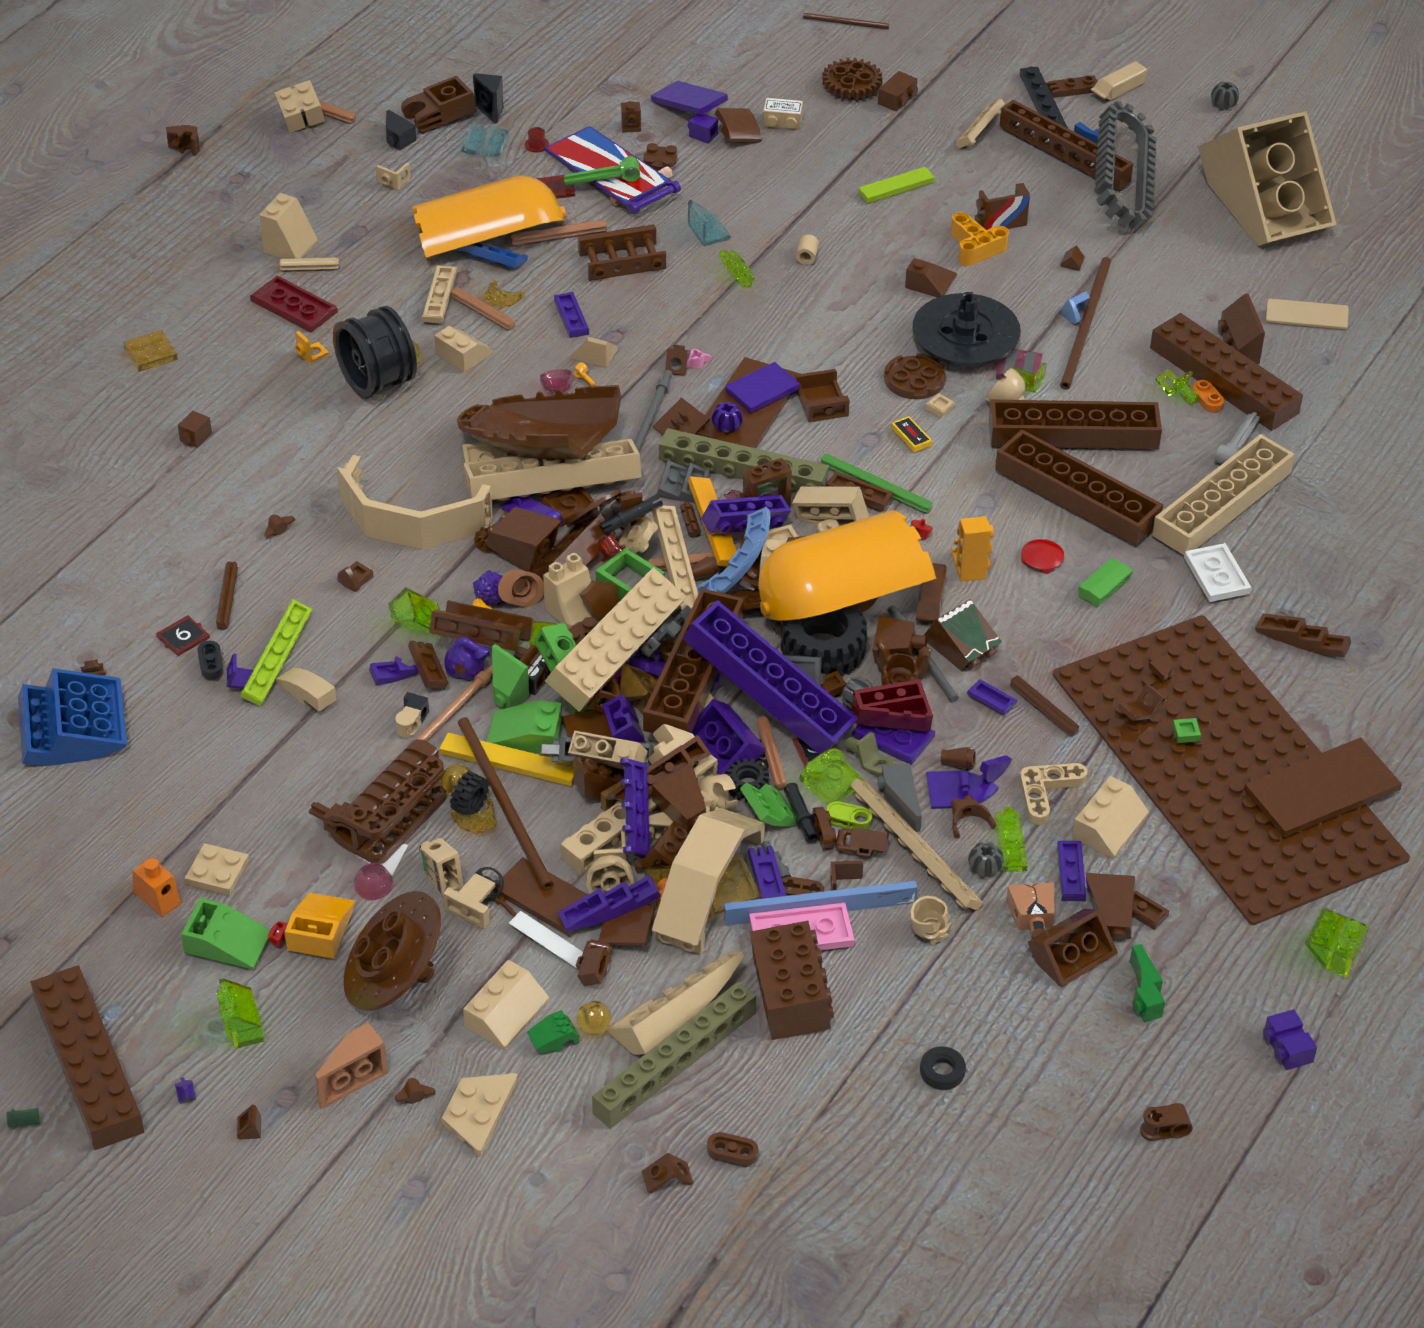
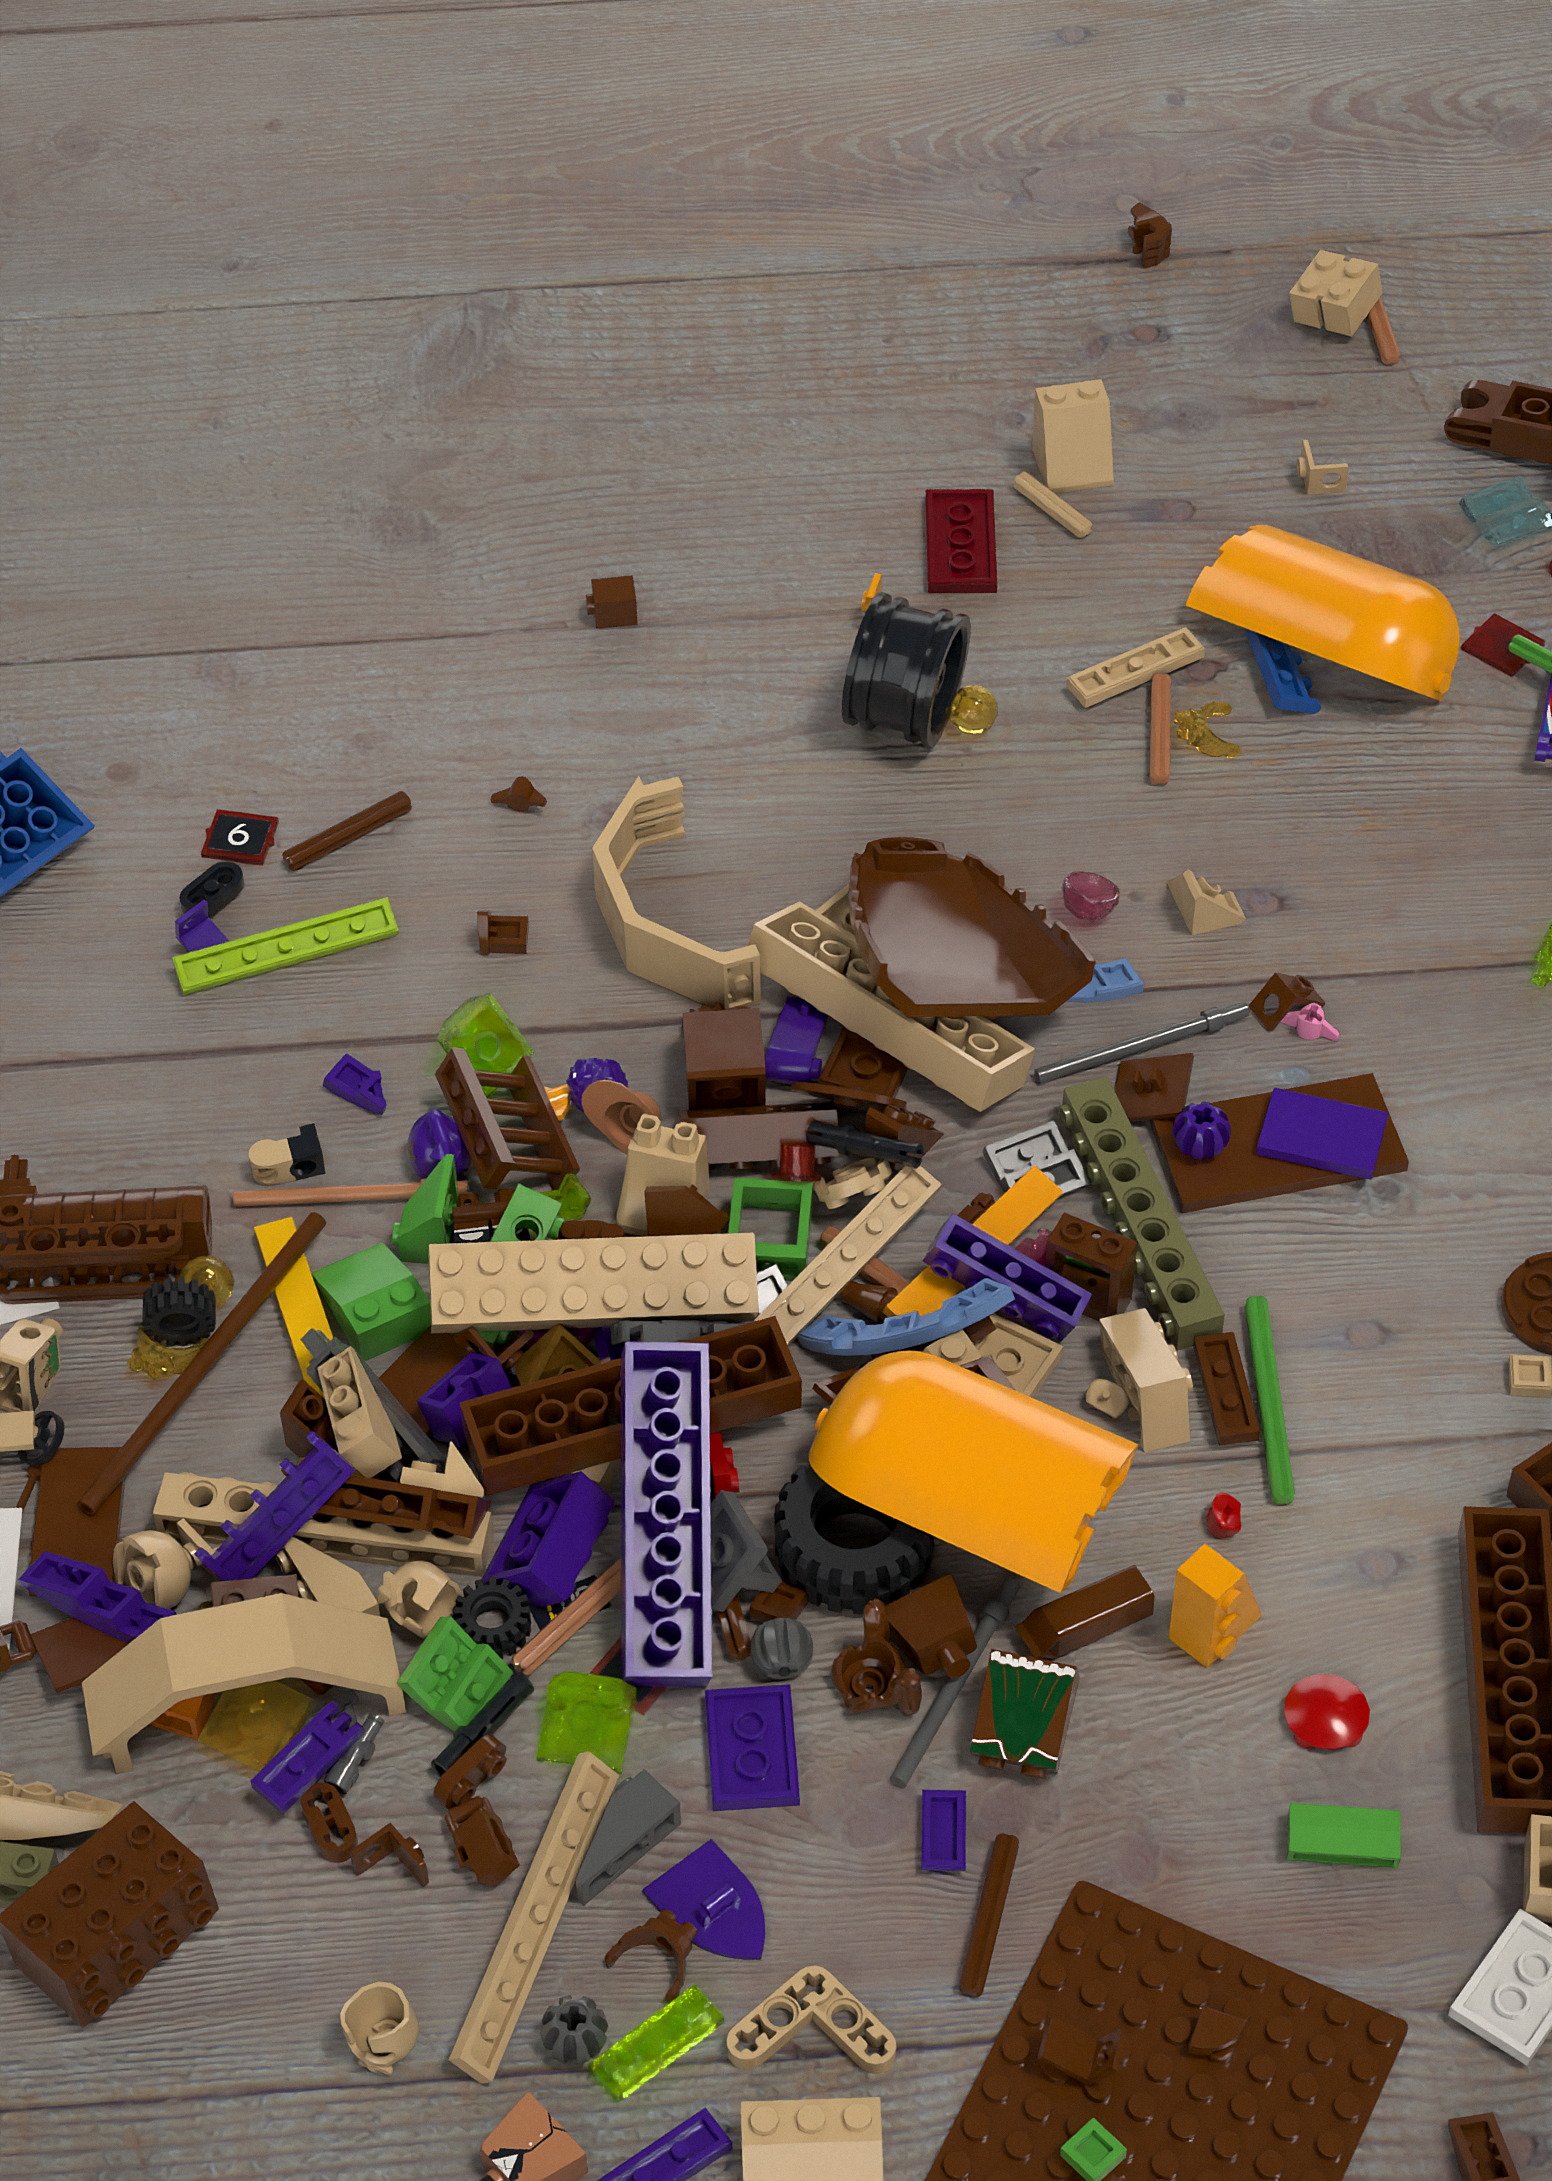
camera: 55 degrees right, 5 degrees up
(93, 667) = (96, 792): reddish brown plate -> none
(150, 350) = (724, 468): clear yellow plate -> none
(307, 688) = (242, 1019): tan slope -> none
(399, 131) = (1412, 416): black slope -> none
(428, 665) = (396, 1116): reddish brown hinge -> none
(460, 348) = (1054, 756): tan slope -> none
(558, 232) = (1408, 708): nougat axle -> none
(571, 315) = (1253, 828): dark purple tile -> none
(580, 371) = (1145, 910): light orange hand -> none
(621, 240) = (1450, 774): reddish brown fence -> none
(680, 797) = (352, 1555): reddish brown slope -> none
(822, 396) = (1387, 1216): reddish brown panel -> none
(828, 920) = (253, 1872): bright pink plate -> none
(844, 815) = (526, 1785): lime piece -> none
(854, 898) = (317, 1864): medium blue tile -> none
(867, 752) = (672, 1739): olive bracket -> none
(893, 706) = (778, 1708): dark red wedge -> none
(911, 434) = (1425, 1378): tile -> none
(959, 757) = (770, 1866): reddish brown cone -> none
(994, 768) = (780, 1925): dark purple tile -> none

